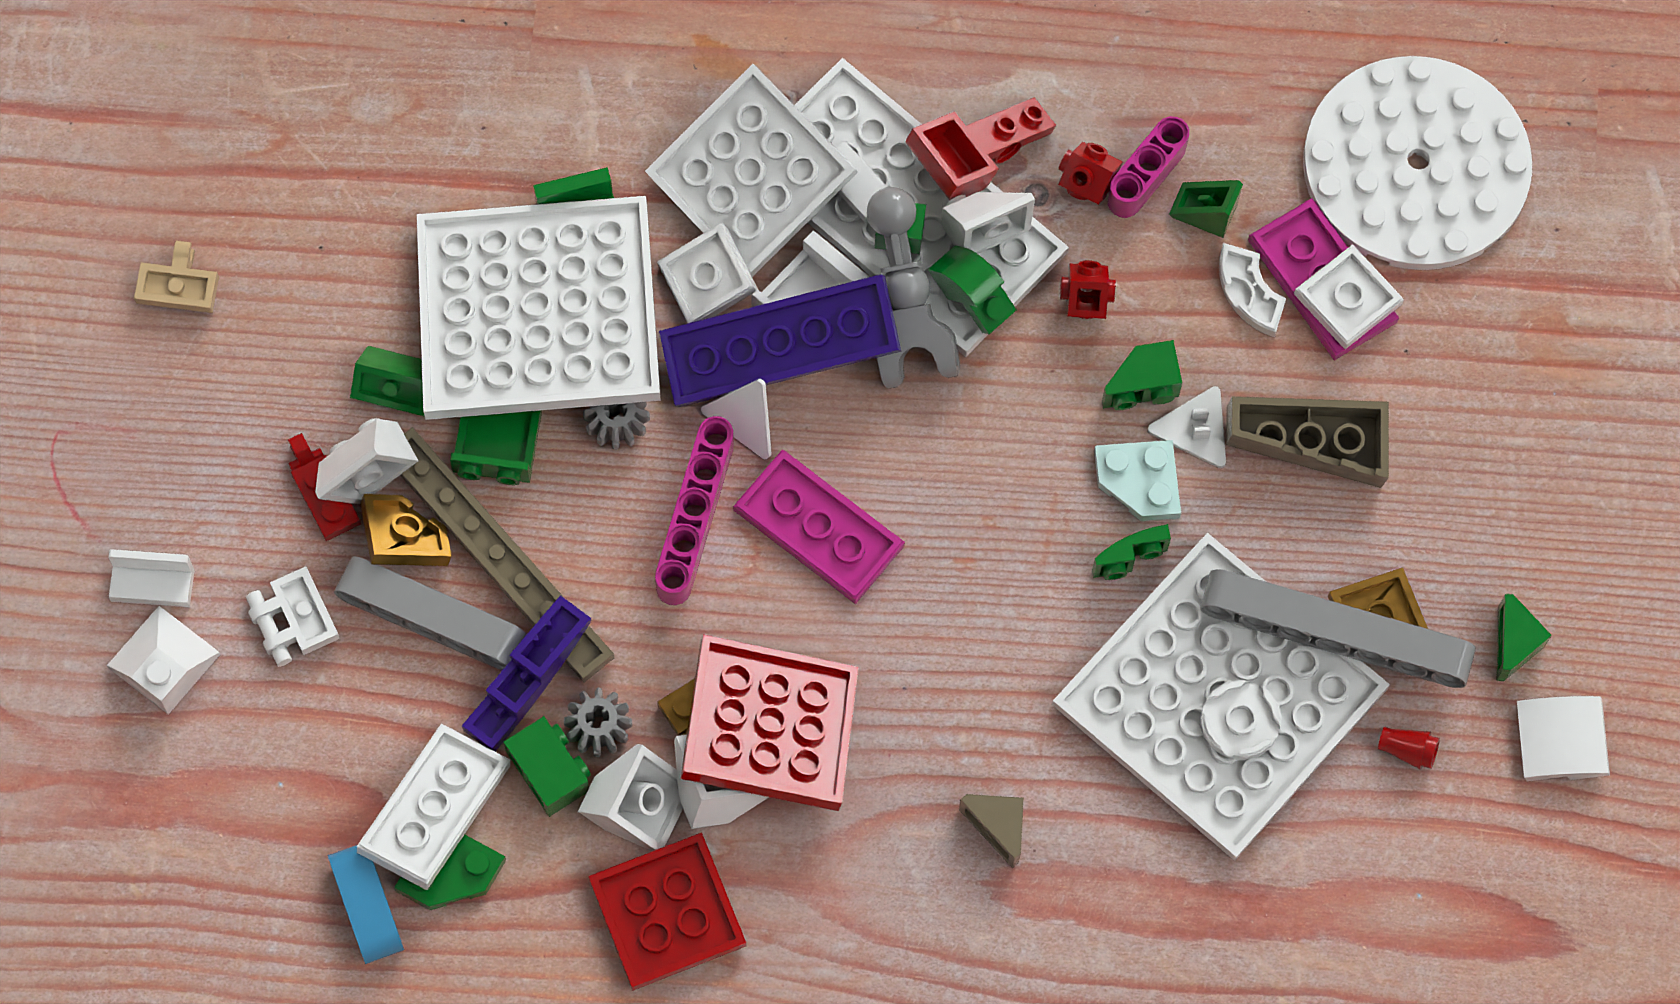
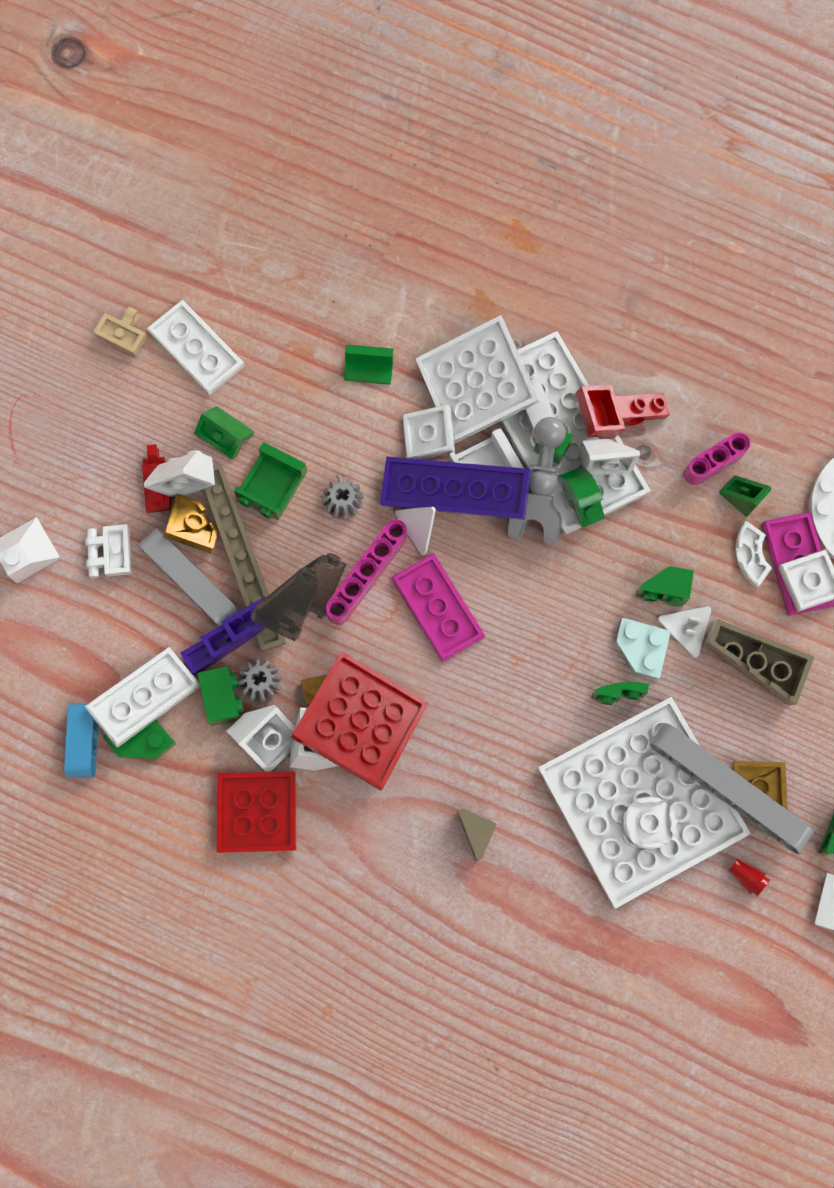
camera: 20 degrees right, 5 degrees up
(151, 578) = (37, 500): white panel -> none
(300, 268) = (196, 347): none -> white tile
(536, 308) = (319, 418): white plate -> none
(619, 572) = (302, 593): none -> clear smoke windscreen
(1087, 290) = (652, 521): red brick -> none
(1088, 172) = (679, 449): red brick -> none

